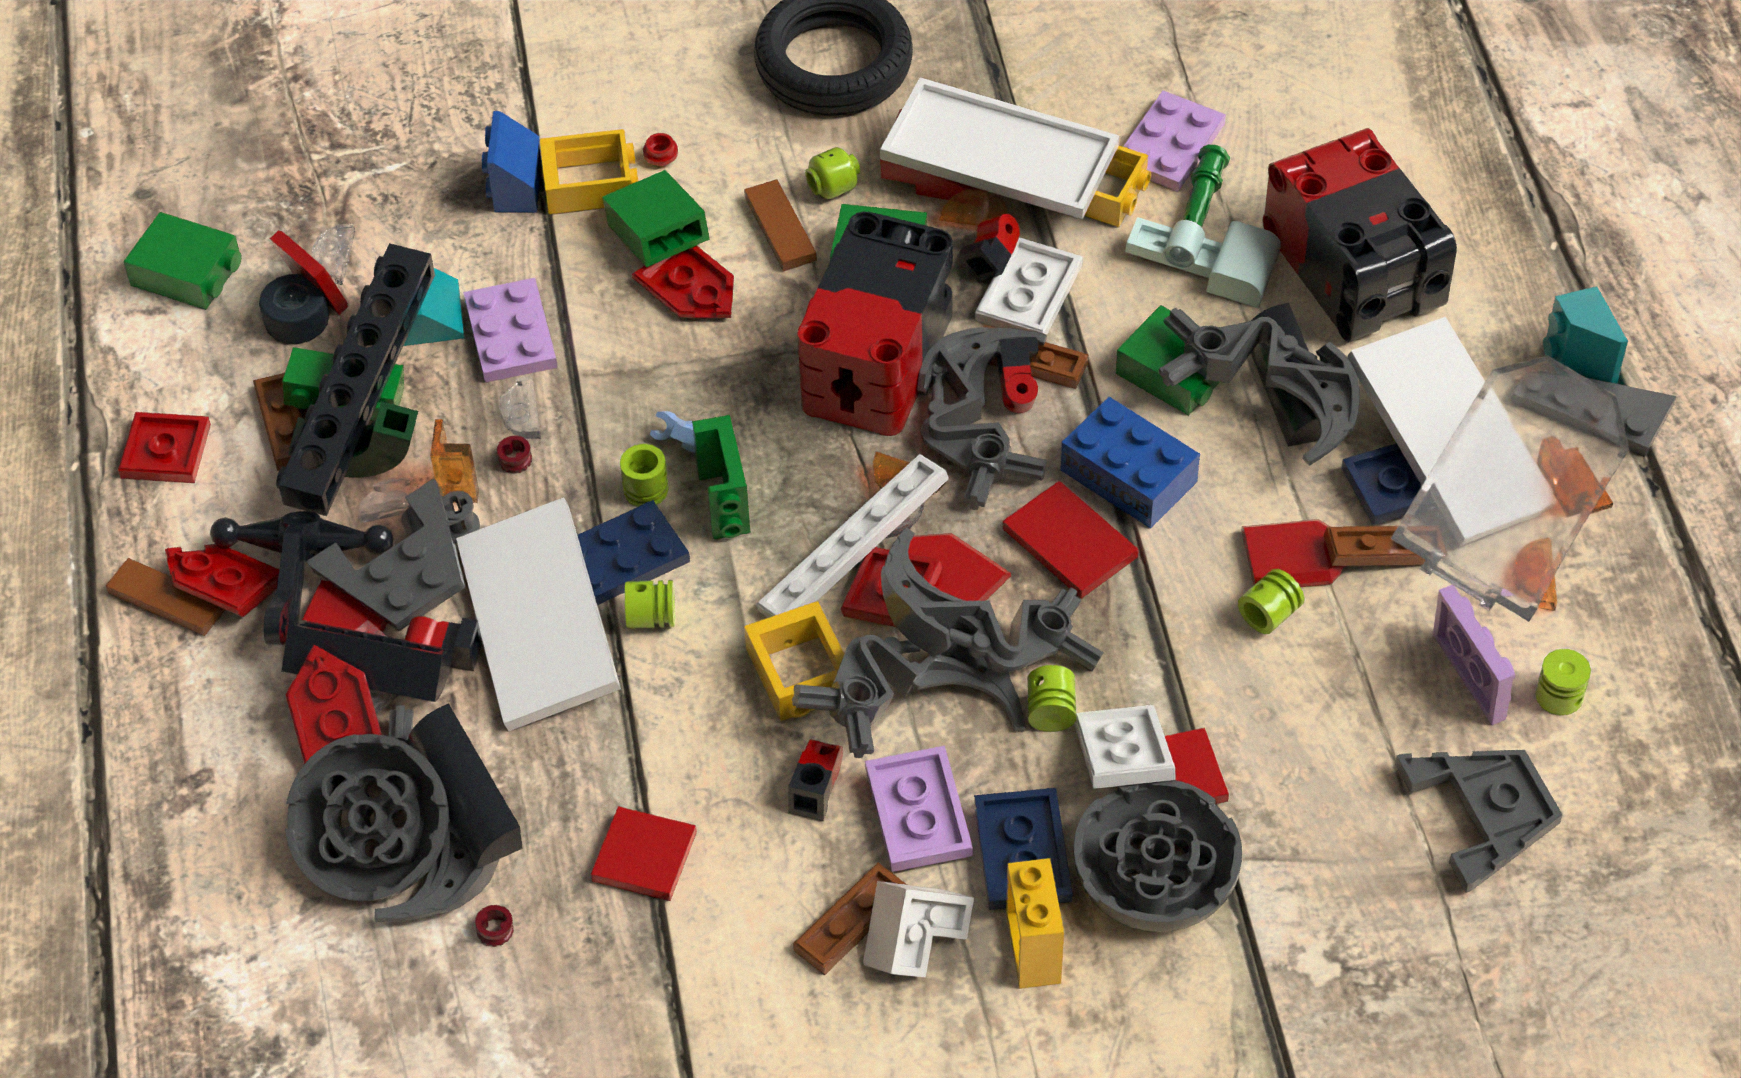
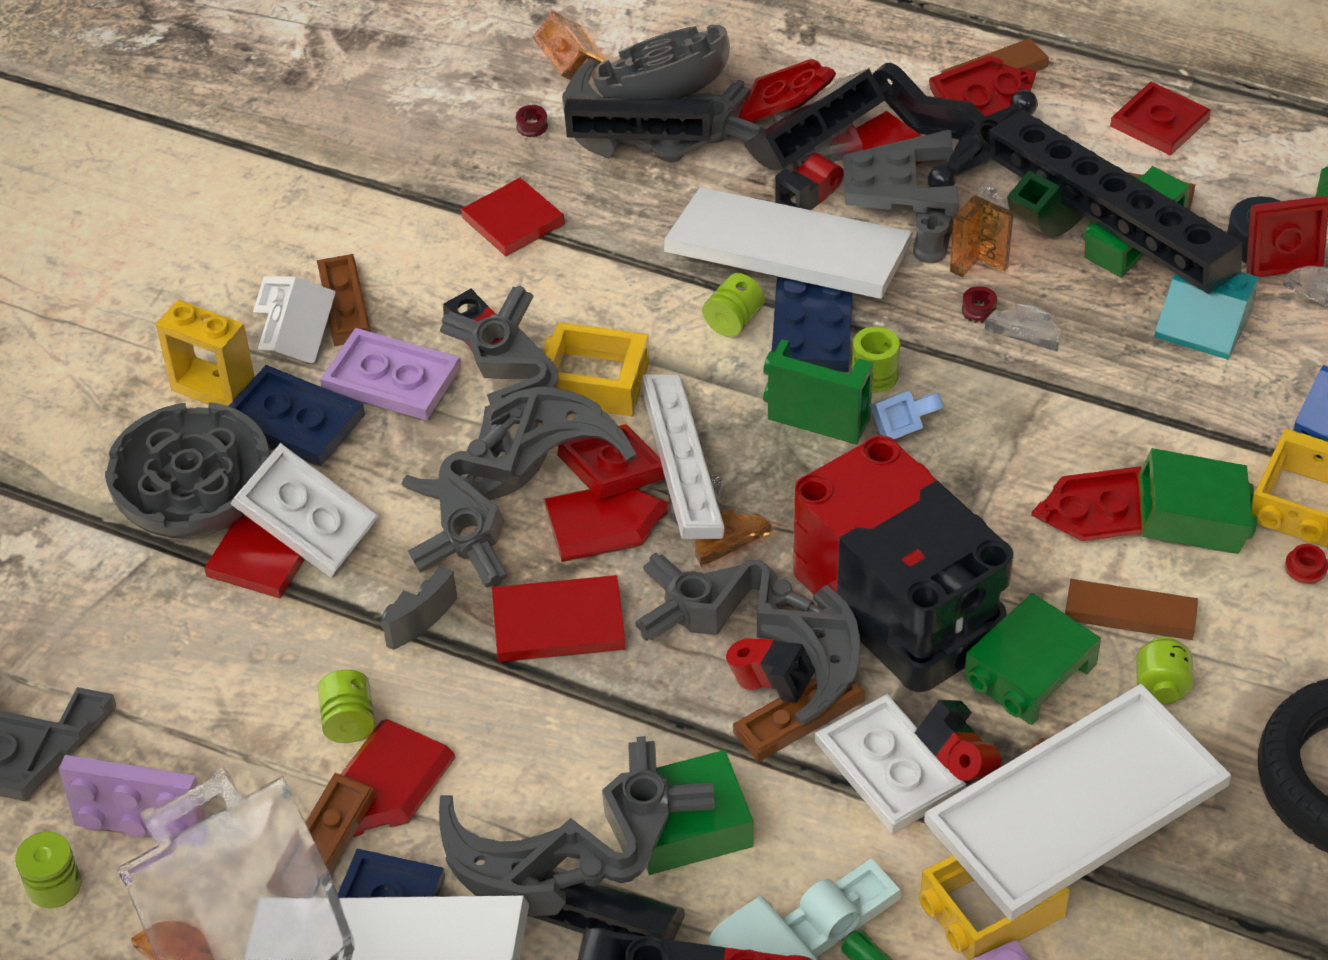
camera: 125 degrees right, 5 degrees down
(359, 959) = (566, 44): none -> clear orange panel
(510, 330) = (1136, 362): lavender plate -> none
(1054, 701) = (401, 499): lime piece -> none
(1129, 462) = (593, 696): blue brick -> none
(1156, 618) = (417, 613): none -> dark grey slope

